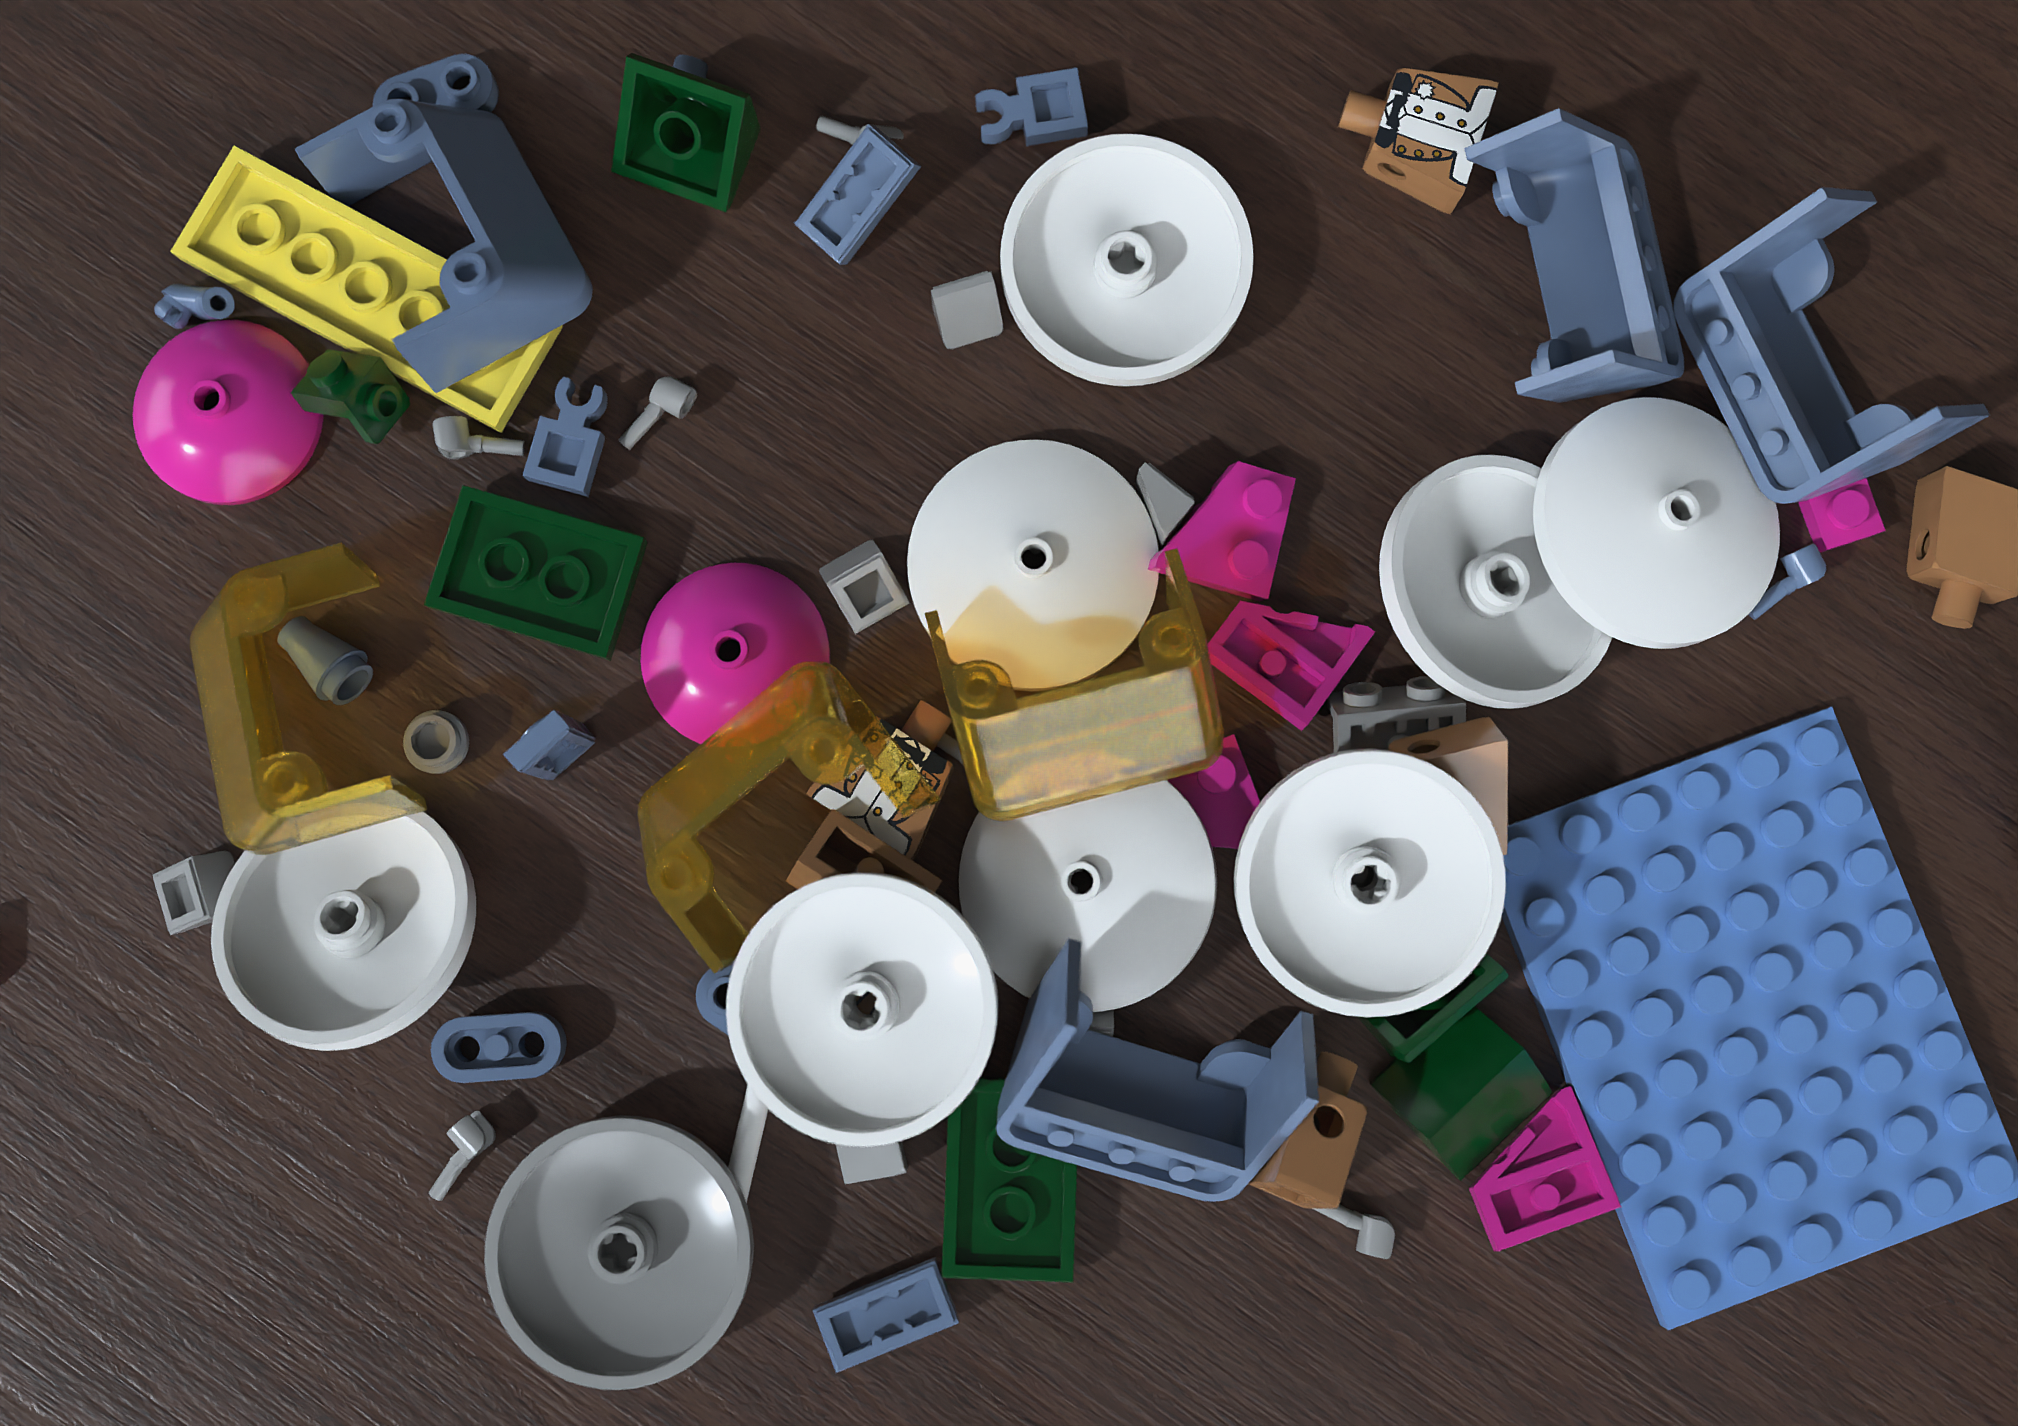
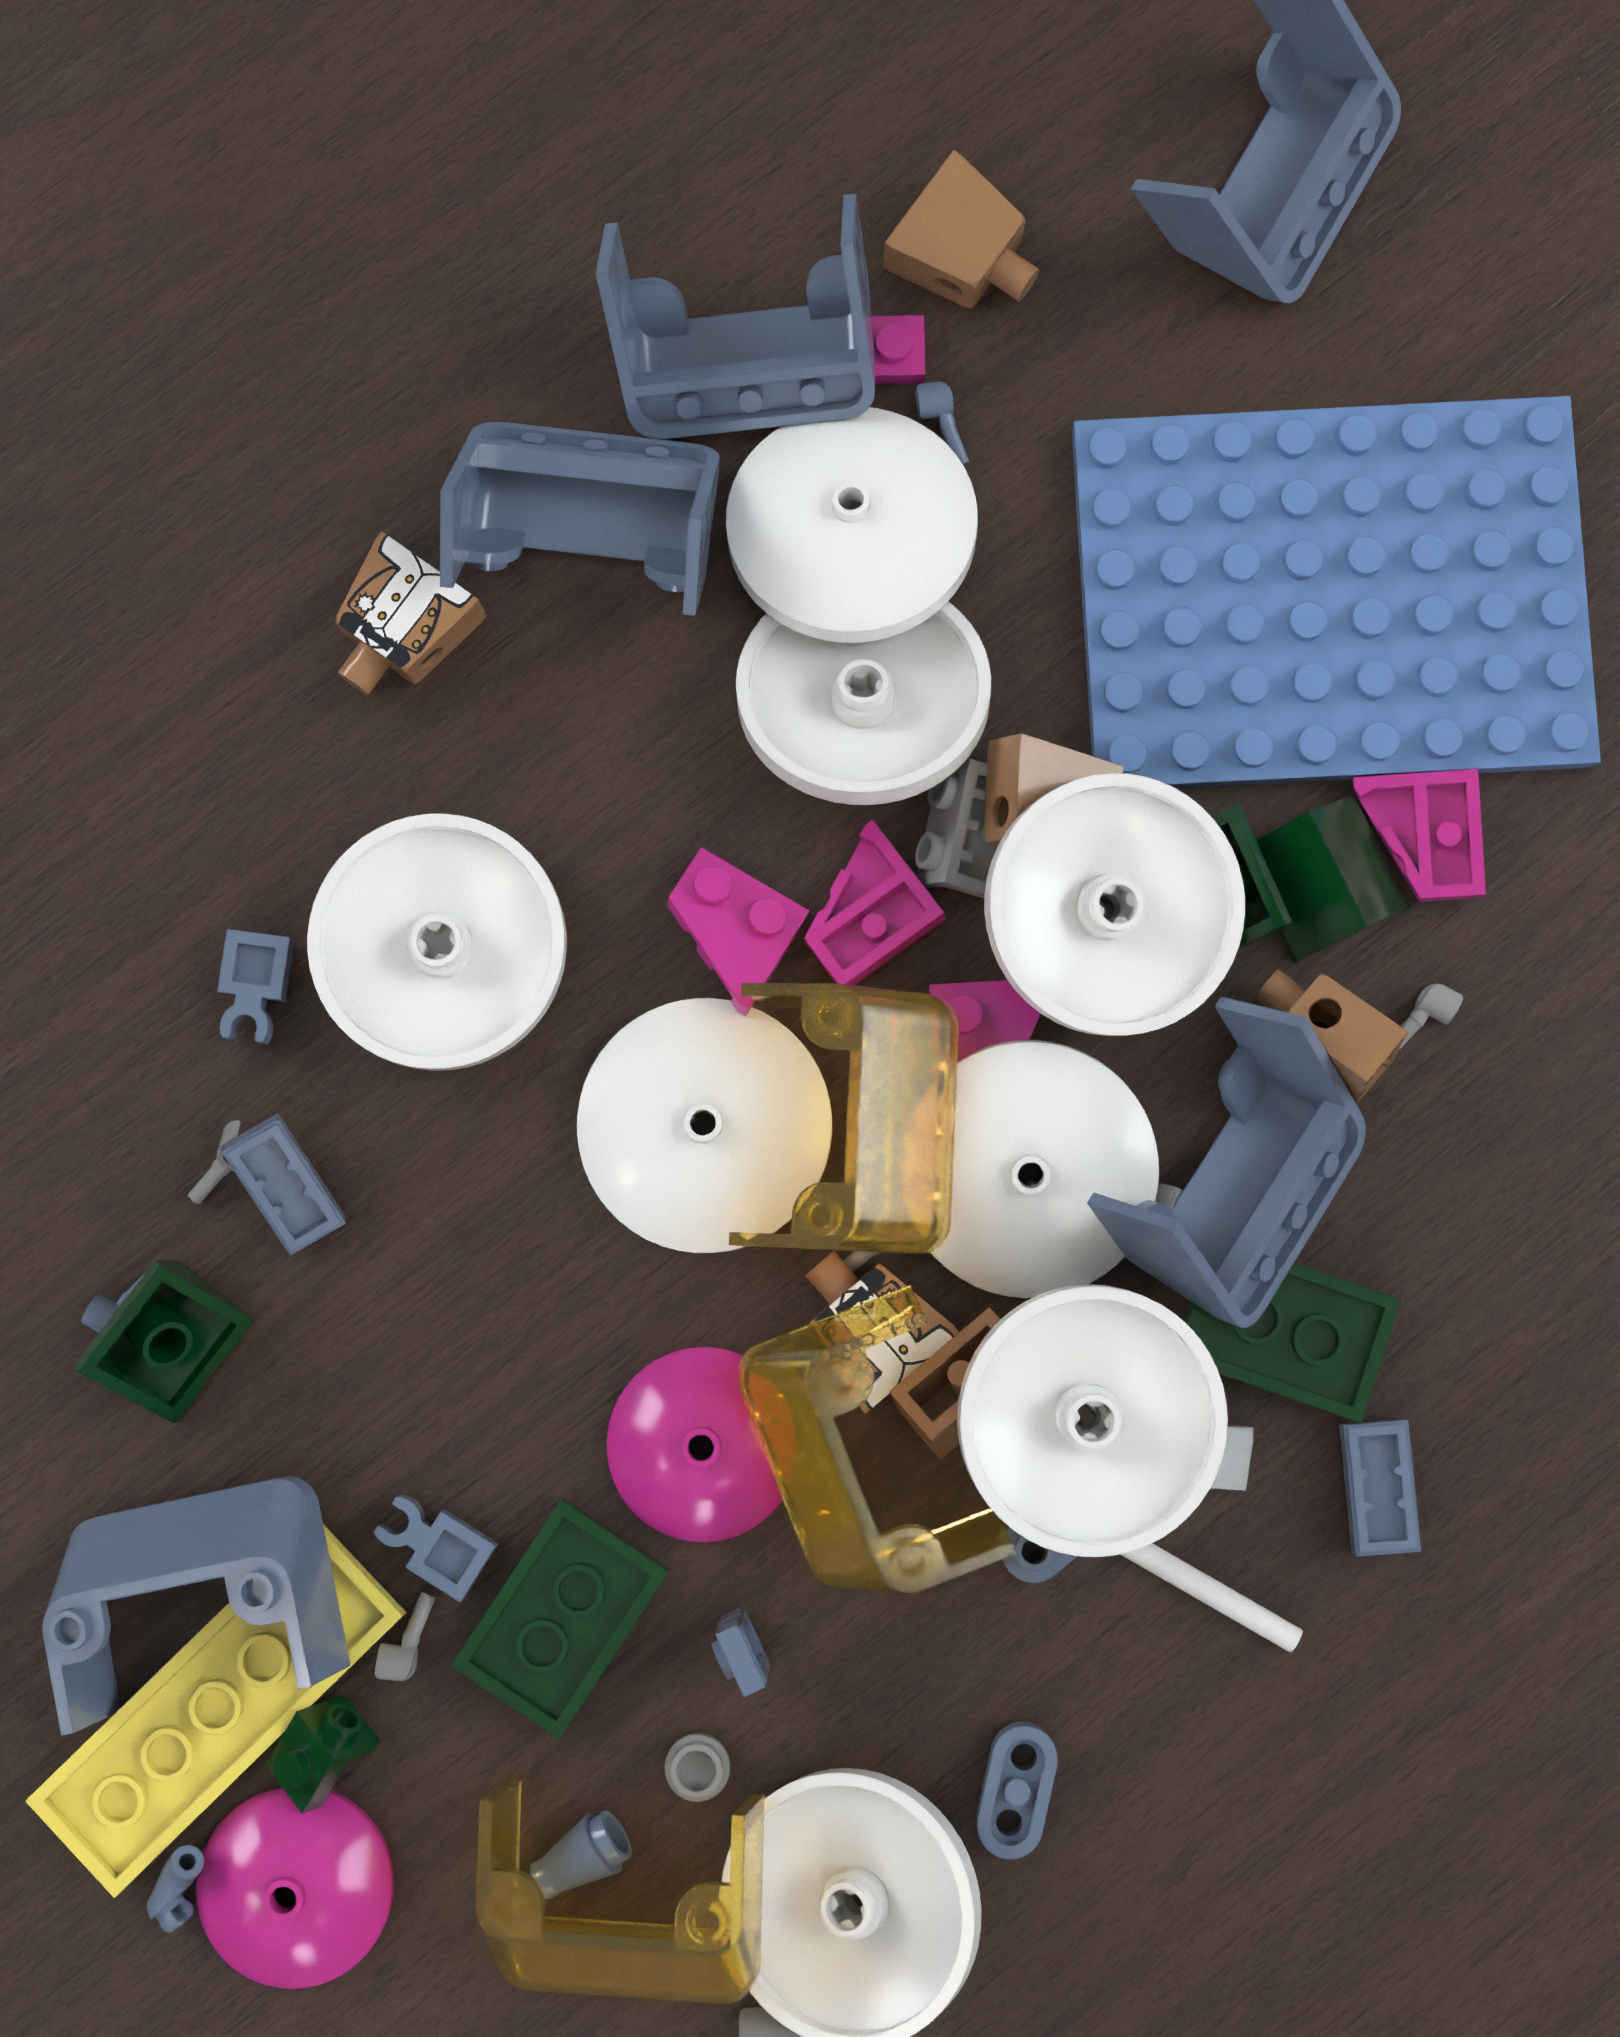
camera: 70 degrees left, 0 degrees up
(435, 84) = (30, 1579): sand blue plate -> none
(472, 1137) = (1094, 1844): light grey hand -> none
(619, 1252) = (1249, 1727): light grey dish -> none
(666, 395) = (422, 1433): light grey hand -> none
(863, 586) = (672, 1297): light grey slope -> none
(967, 310) = (434, 1111): light grey slope -> none
(1163, 500) = (685, 980): light grey slope -> none

